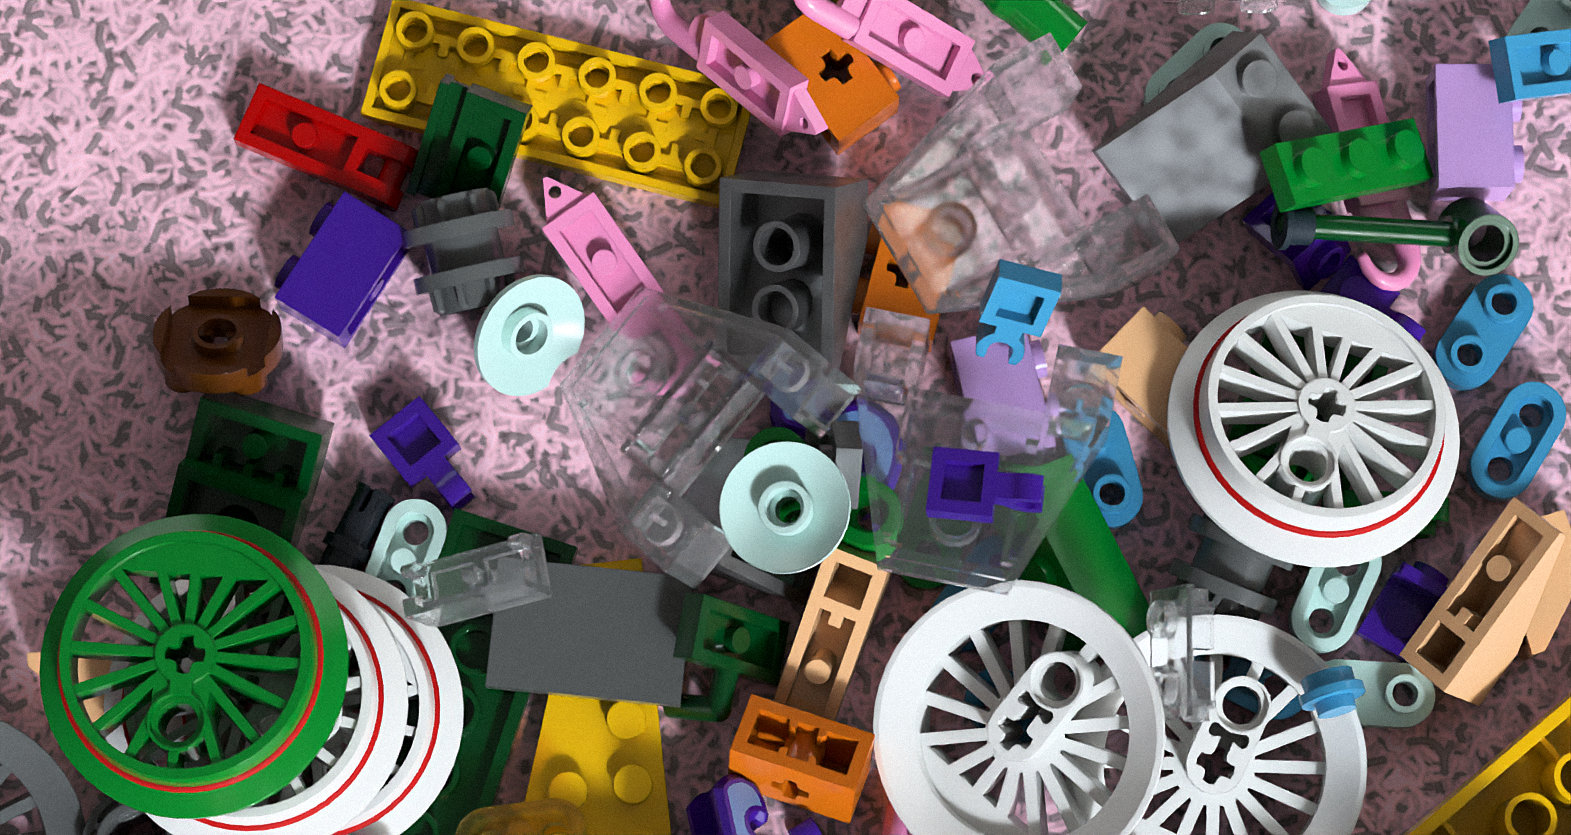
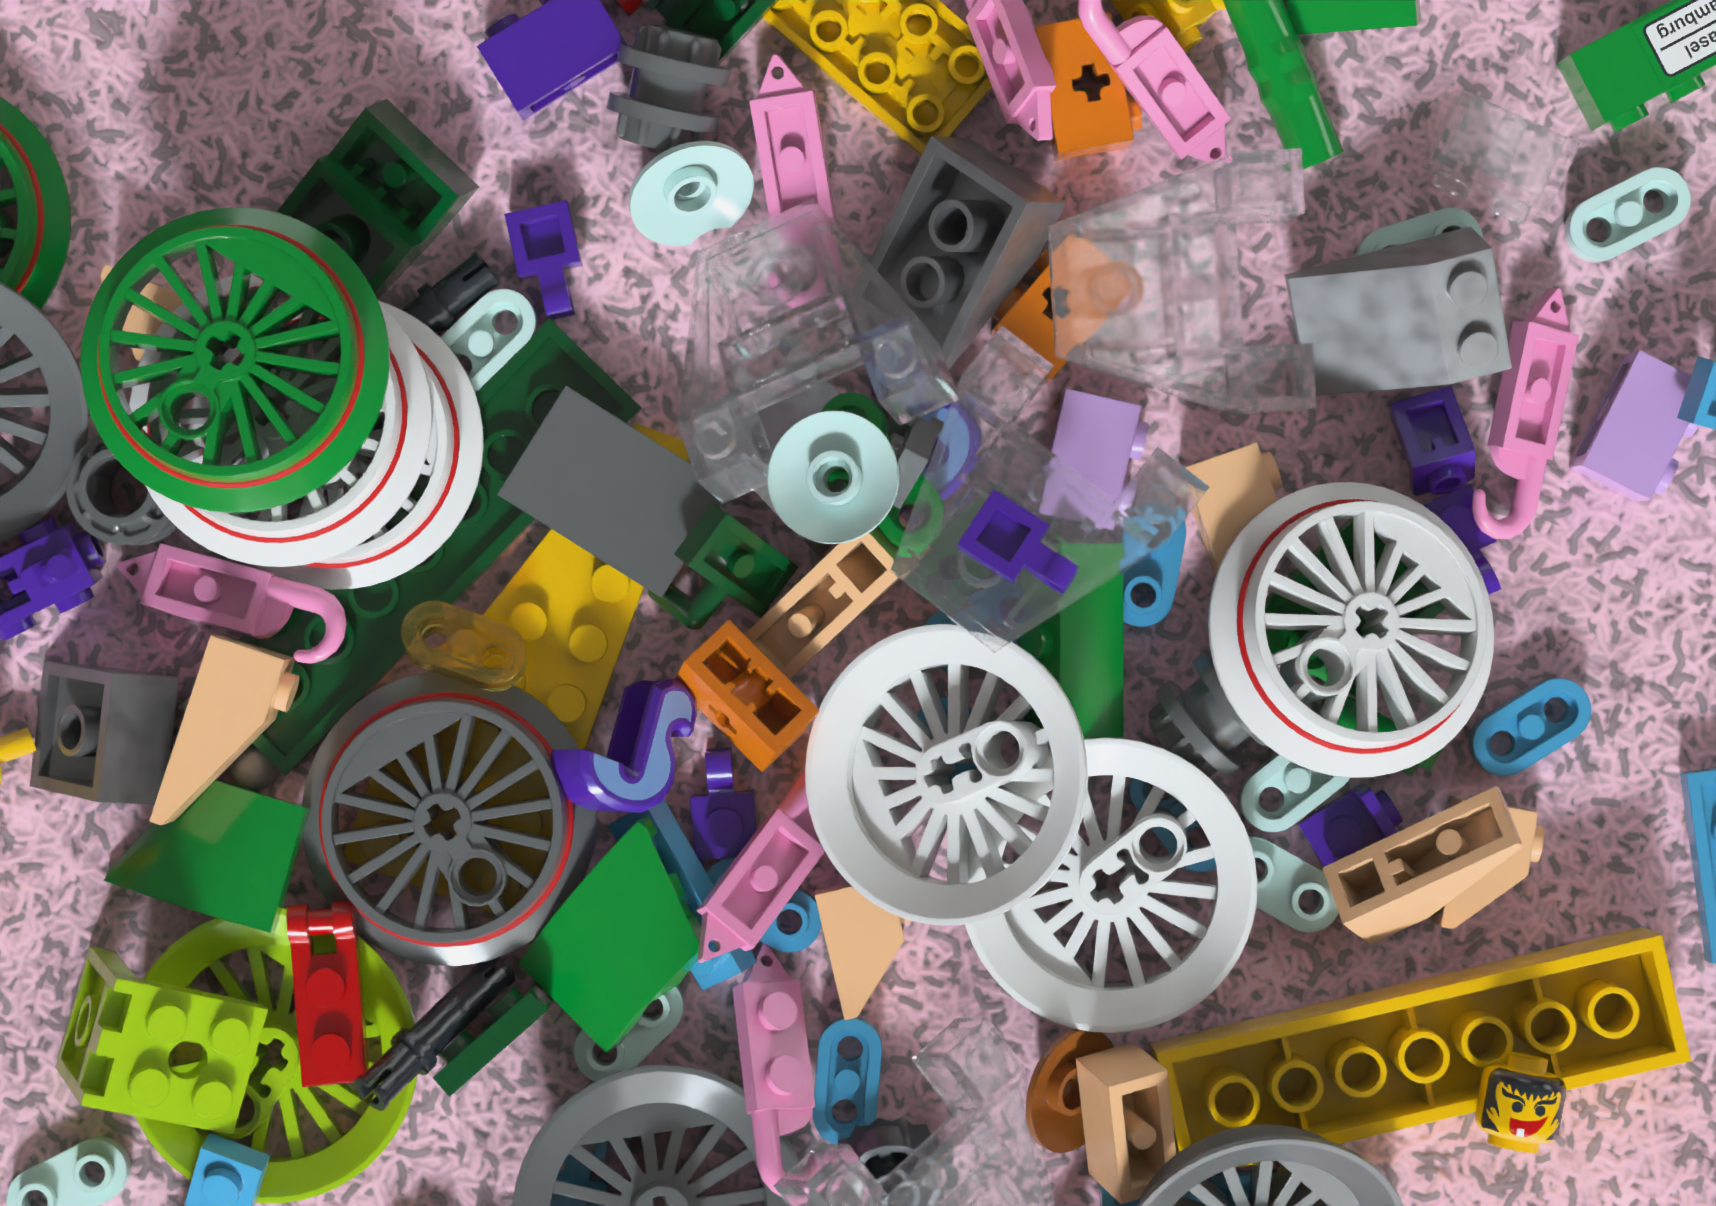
camera: 30 degrees right, 10 degrees up
(195, 364) = (402, 90): reddish brown plate -> none
(478, 581) = (534, 398): clear hinge -> none
(1015, 304) = (1138, 390): dark azure plate -> none
(1178, 624) = (1133, 750): clear hinge -> none
(1331, 692) = (1241, 878): dark azure plate -> none
(1346, 164) = (1507, 405): green plate -> none
(1450, 232) = (1572, 511): dark green piece -> none
(1484, 331) = (1554, 611): dark azure plate -> none

